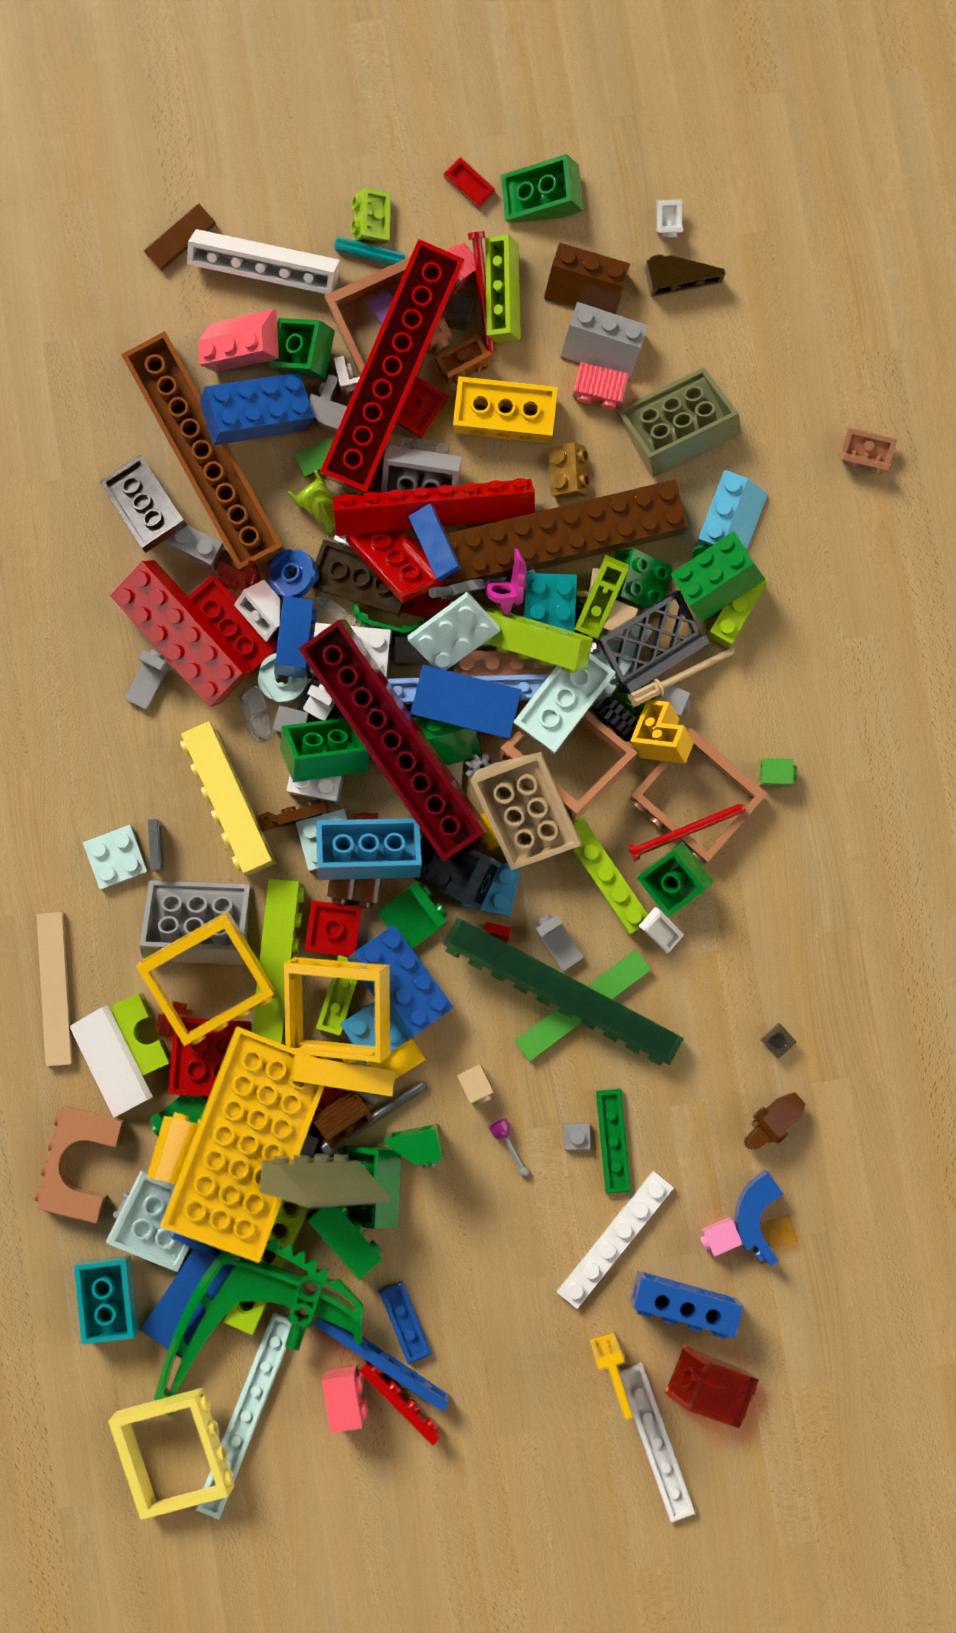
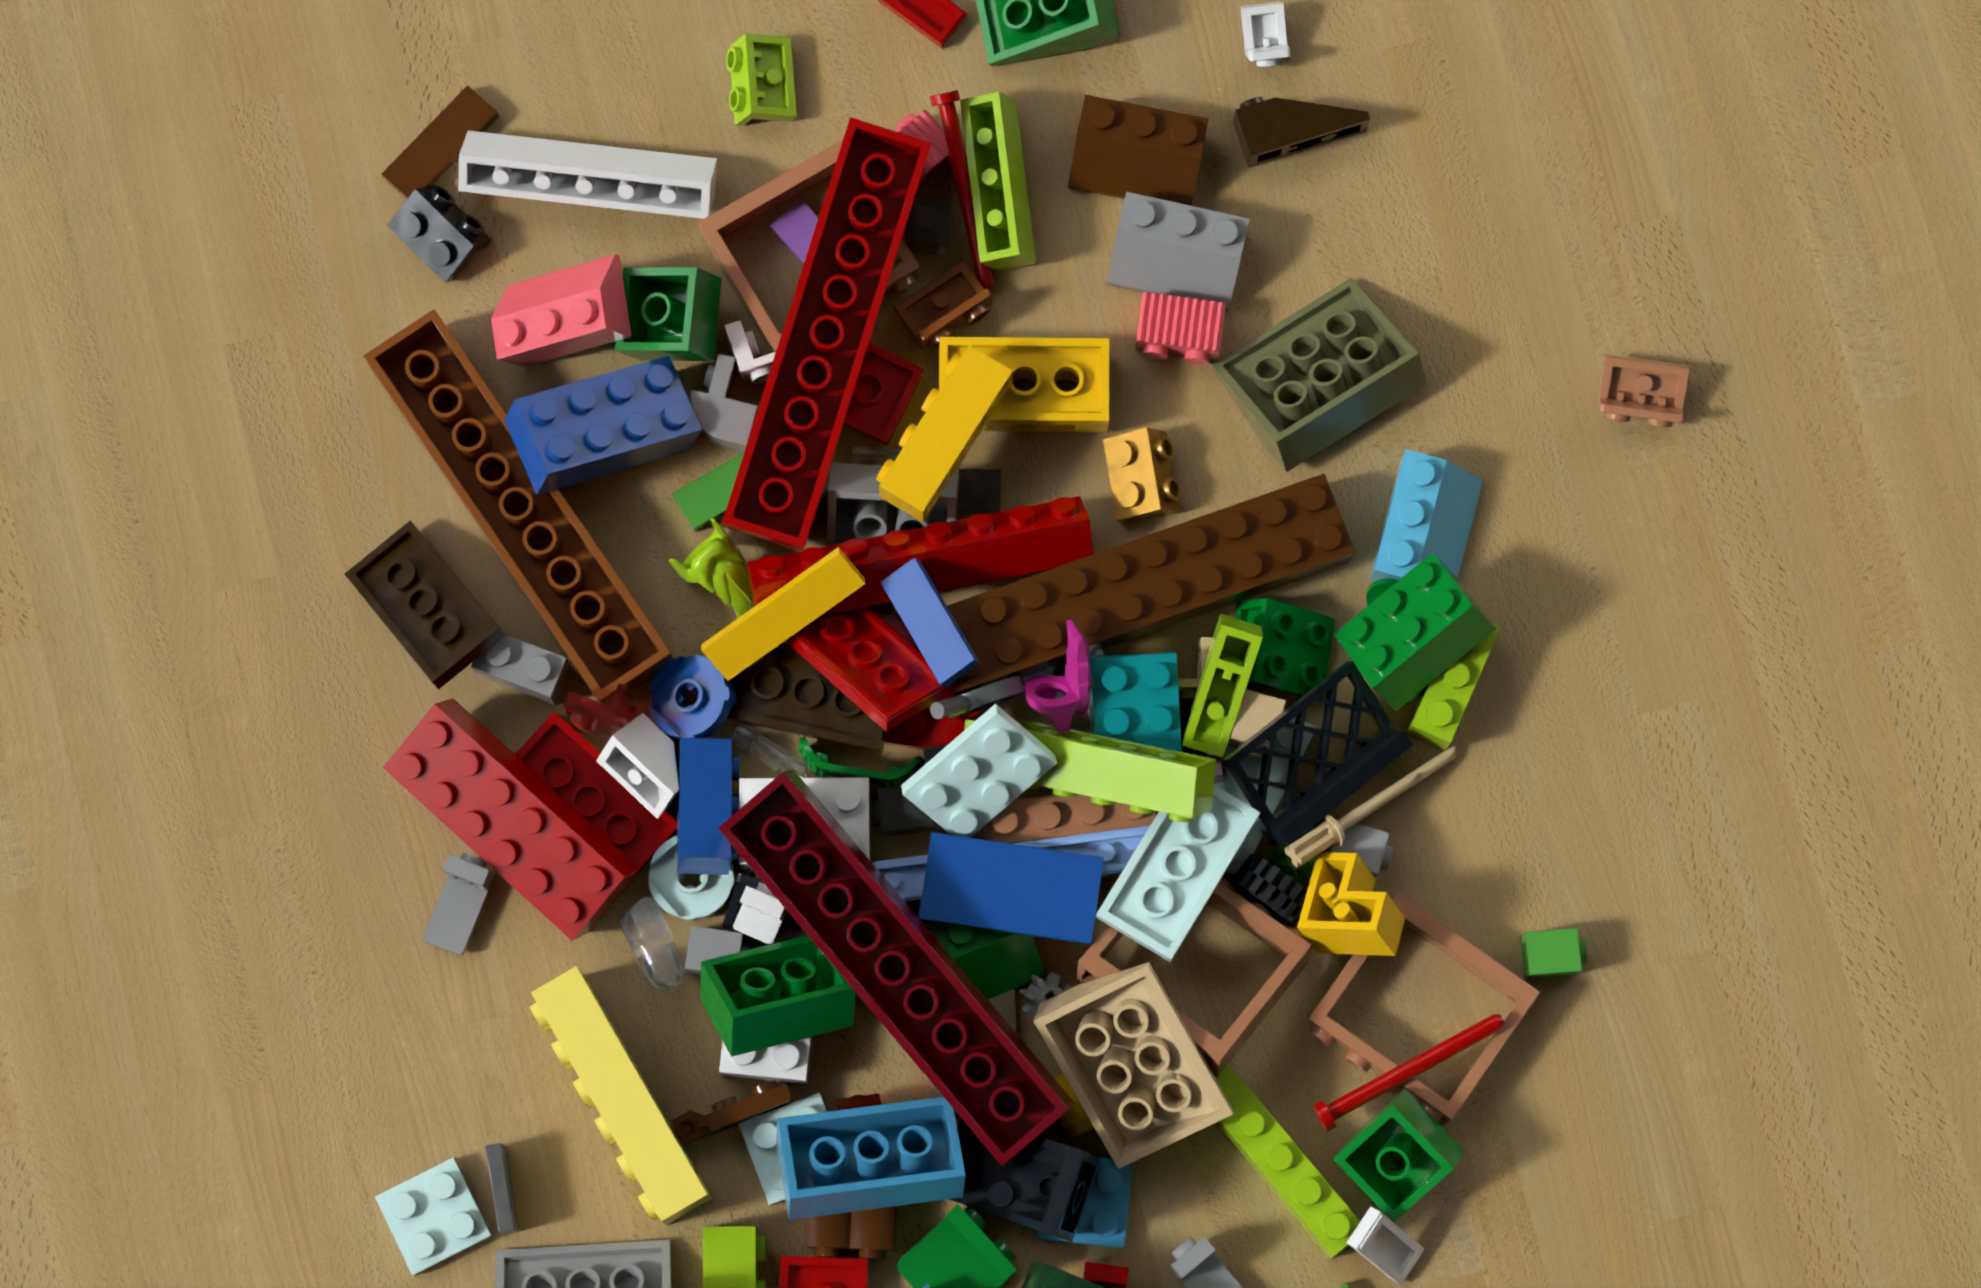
camera: 10 degrees left, 5 degrees down
(173, 287) = (438, 231): none -> bracket
(350, 529) = (783, 614): none -> yellow tile
(368, 251) = (763, 138): teal axle -> none
(455, 432) = (944, 433): none -> yellow brick
(473, 470) = (979, 491): none -> clear smoke plate

